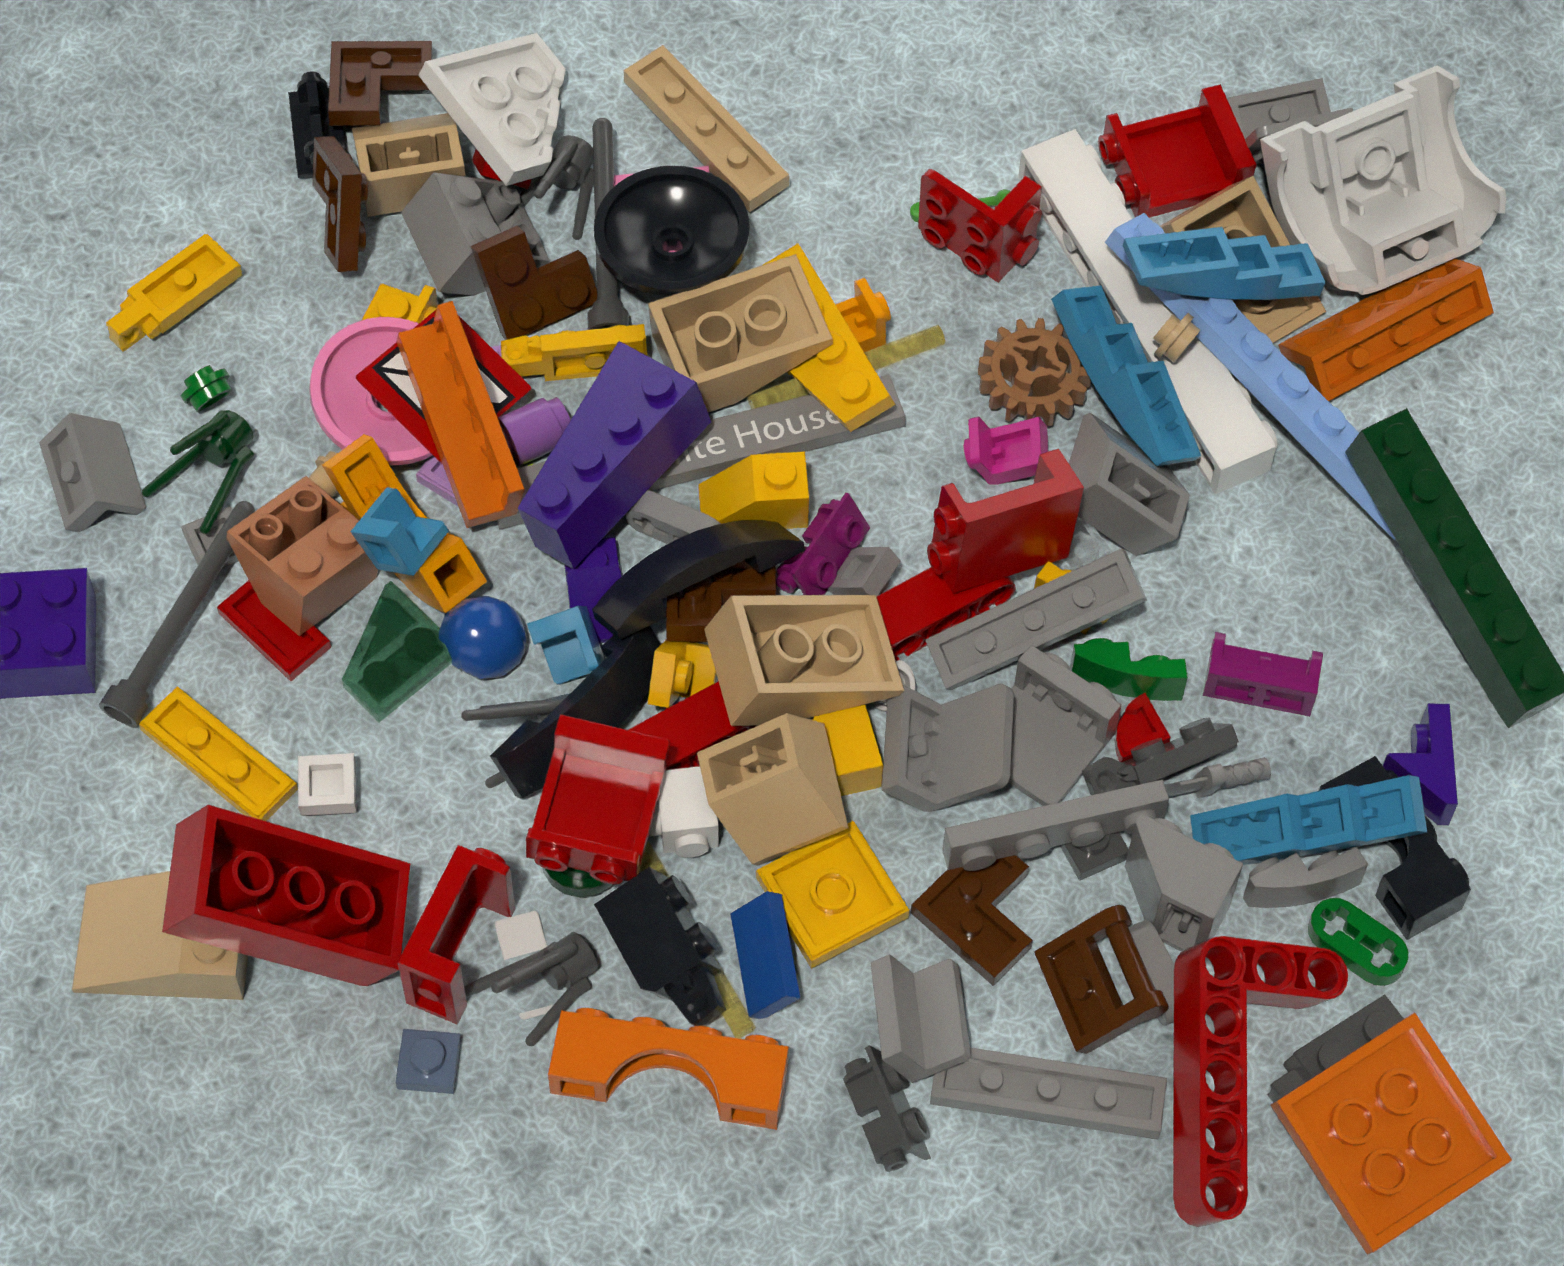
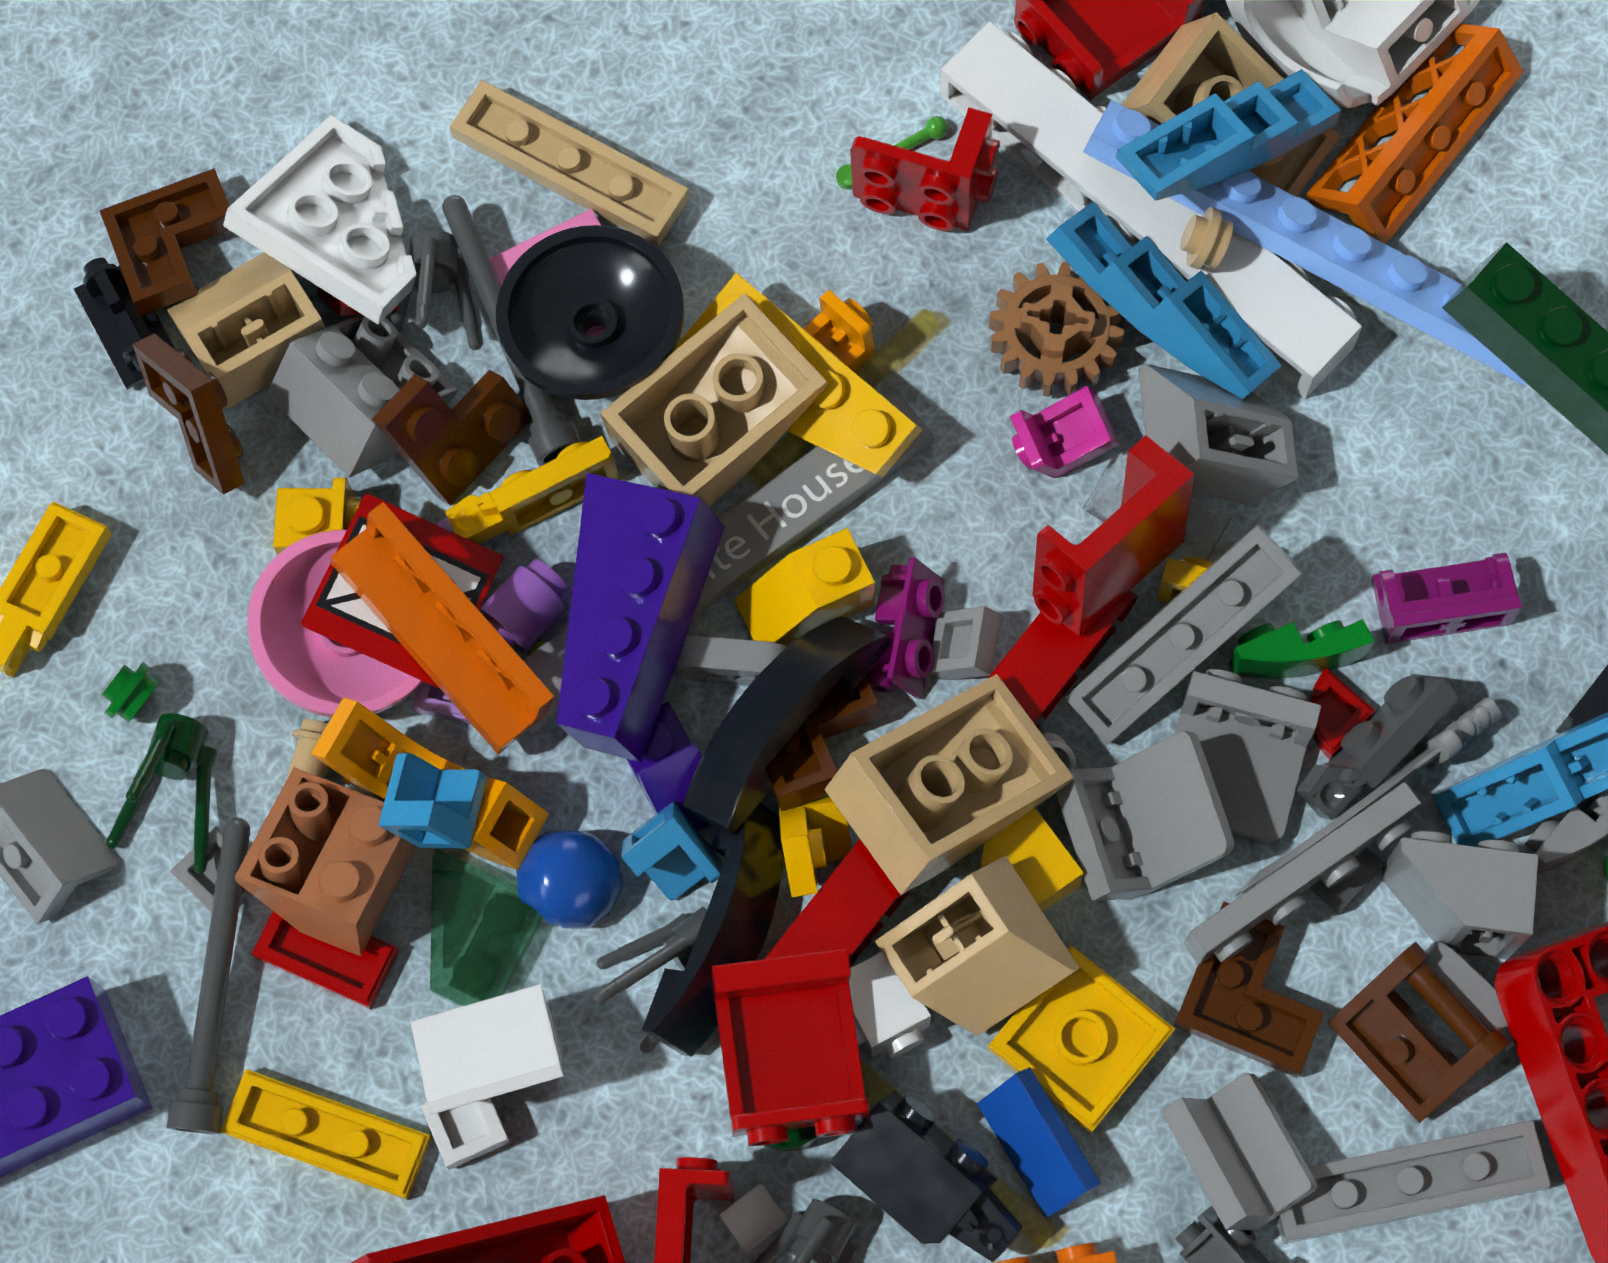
camera: 15 degrees left, 10 degrees up
(366, 721) = (487, 1049): none -> white slope

